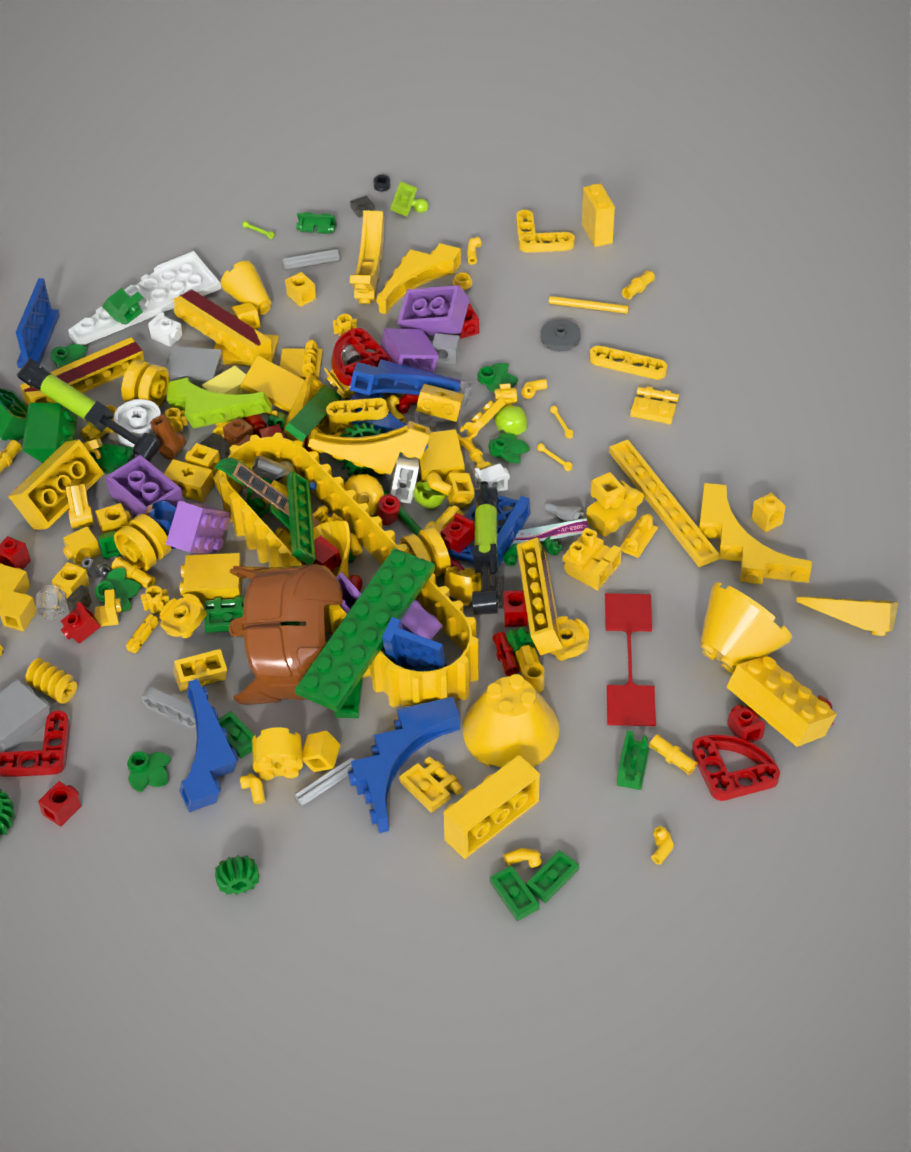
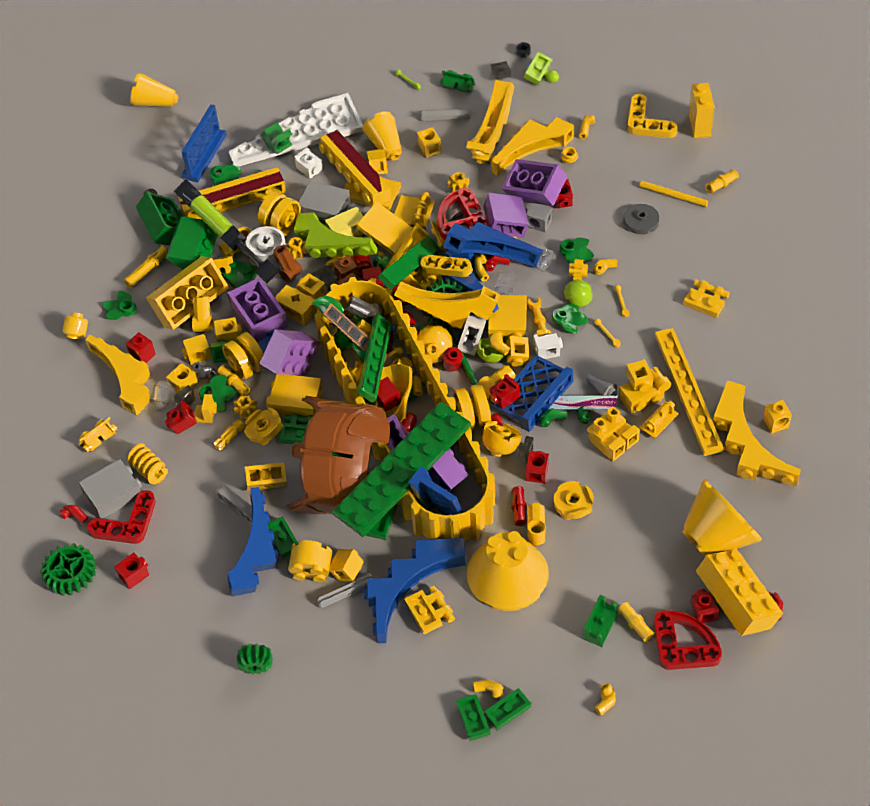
camera: 15 degrees right, 5 degrees up
(150, 772) = (207, 557): green plate -> none
(162, 513) = (262, 334): blue hair -> none
(256, 786) = (288, 588): yellow arm -> none
(440, 402) = (520, 268): yellow brick -> none
(482, 419) = (550, 289): yellow plate -> none
(485, 547) = (521, 414): black piece -> none
(491, 806) = (471, 640): yellow brick -> none
(519, 638) = (534, 495): green tile -> none
(539, 596) = (557, 461): yellow brick -> none
(628, 361) = (691, 256): yellow beam -> none
(630, 702) = (613, 568): red hinge -> none
(866, 614) = (838, 527): yellow wedge -> none

